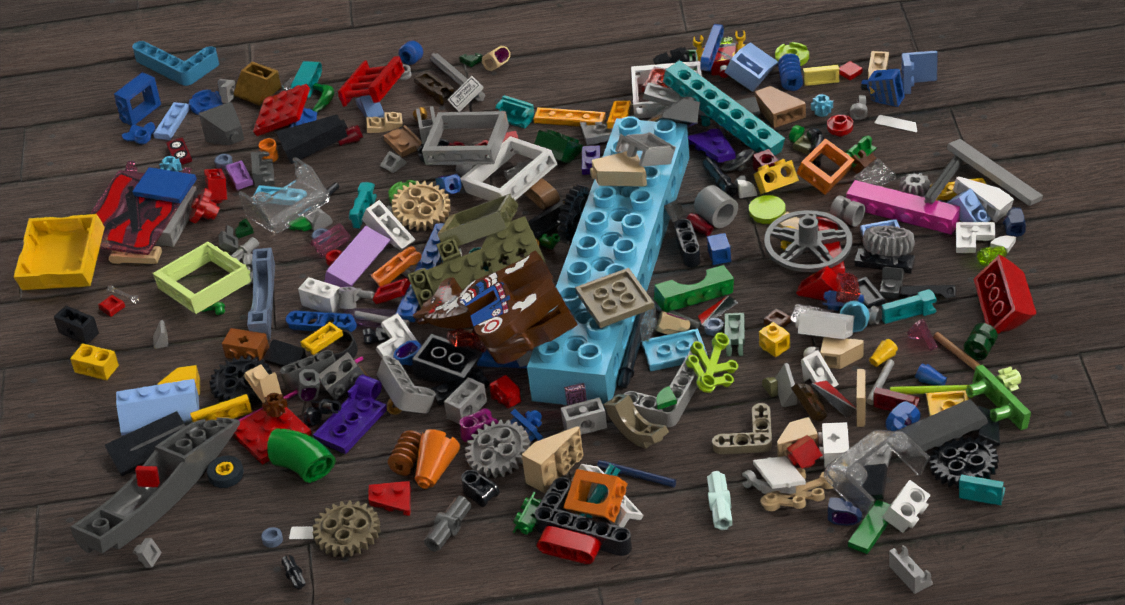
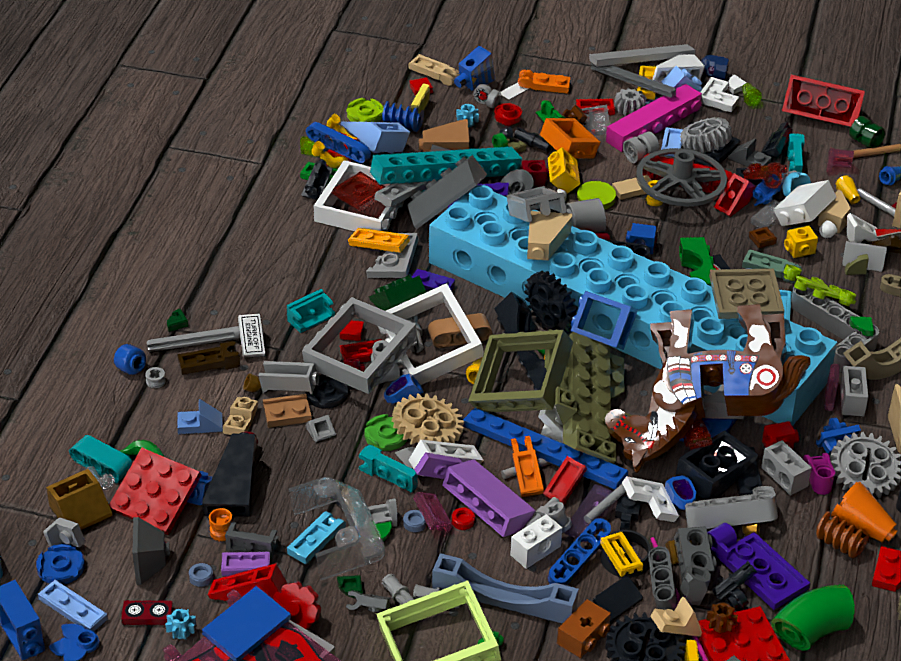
camera: 75 degrees left, 0 degrees up
(366, 219) = (435, 465): none -> medium lavender plate
(371, 81) = (177, 379): red fence -> none
(496, 58) = (202, 299): tan rock -> none
(557, 240) = (622, 326): none -> blue window
(567, 117) = (348, 276): light orange tile -> none
(898, 174) = (585, 103): none -> red tile
(912, 133) = (544, 81): none -> orange hinge
(918, 68) = (467, 41): medium blue bracket -> none

